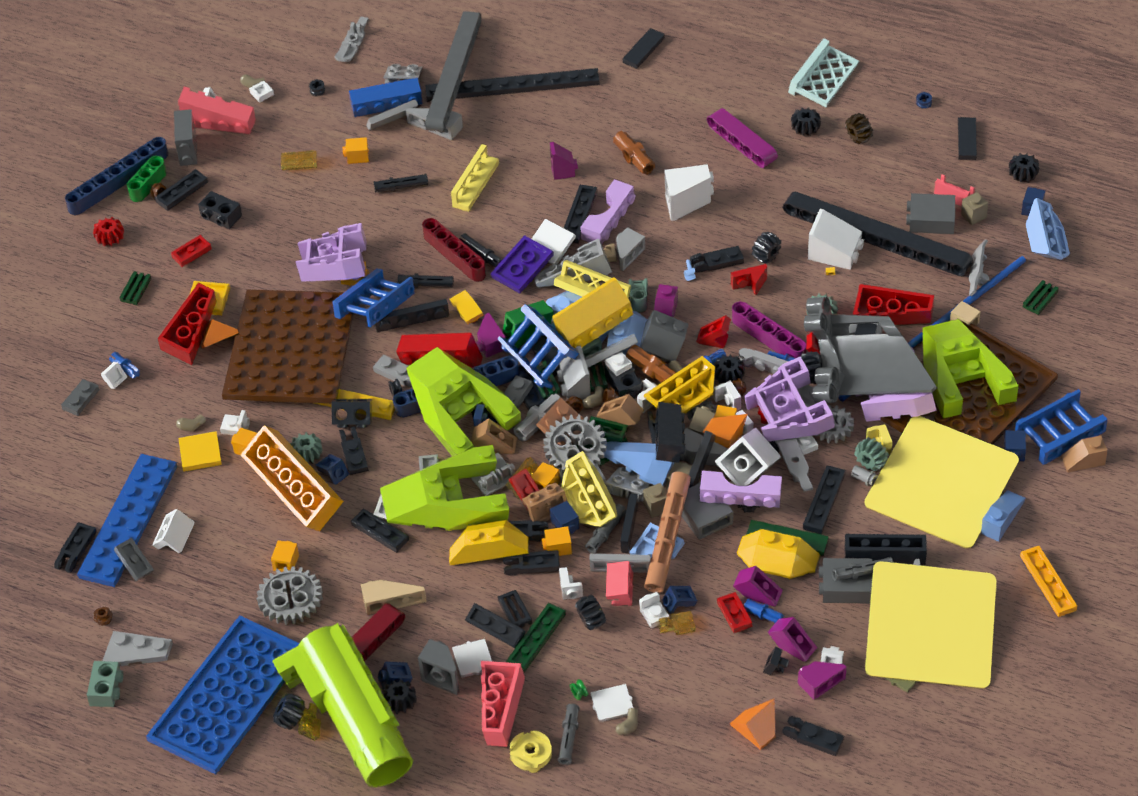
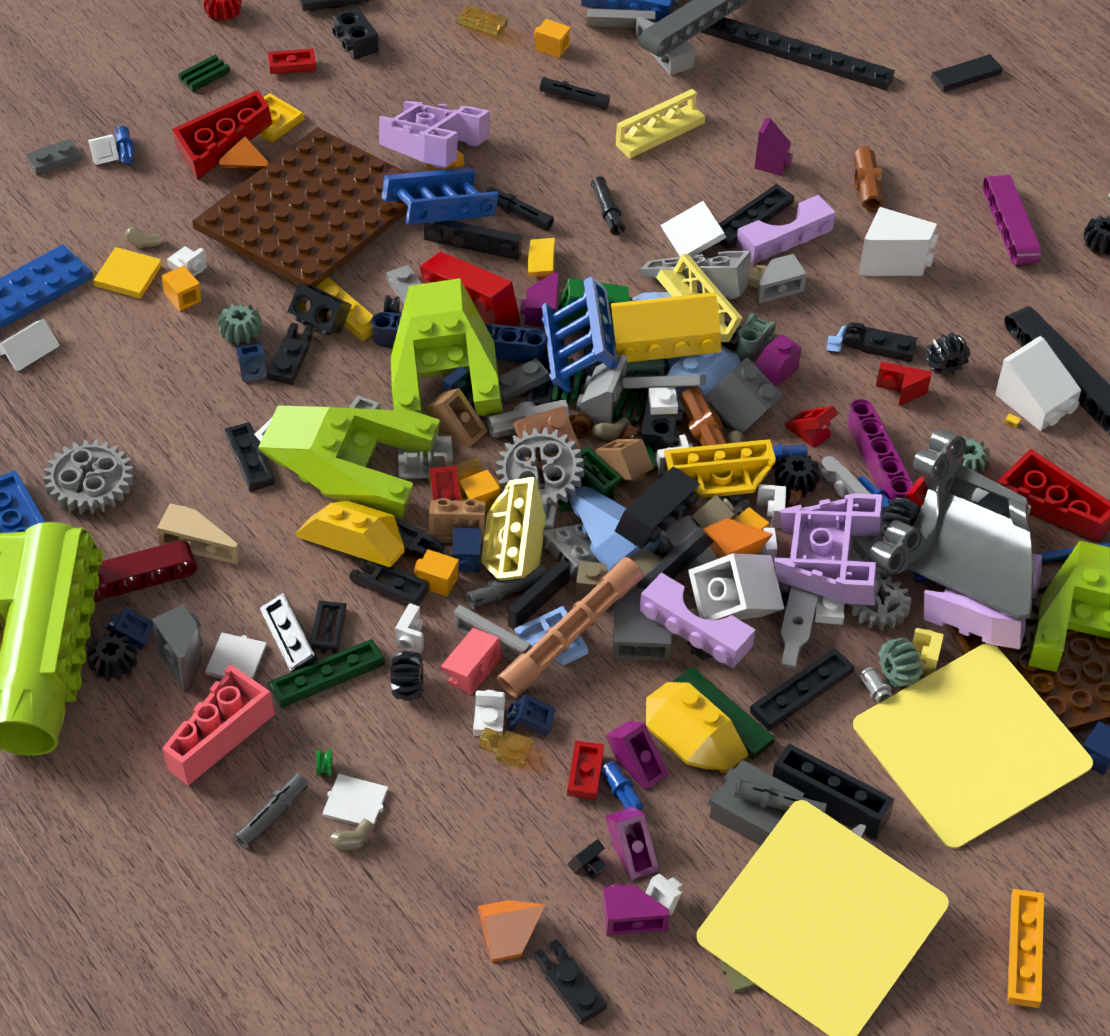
camera: 25 degrees right, 0 degrees up
(284, 555) = (119, 430): light orange brick -> none
(292, 478) = (191, 348): light orange brick -> none
(454, 249) = (577, 189): dark red beam -> none
(522, 264) = (641, 240): dark purple plate -> none
(533, 761) = (213, 821): light yellow plate -> none
(1001, 515) = (1022, 827): medium blue slope -> none

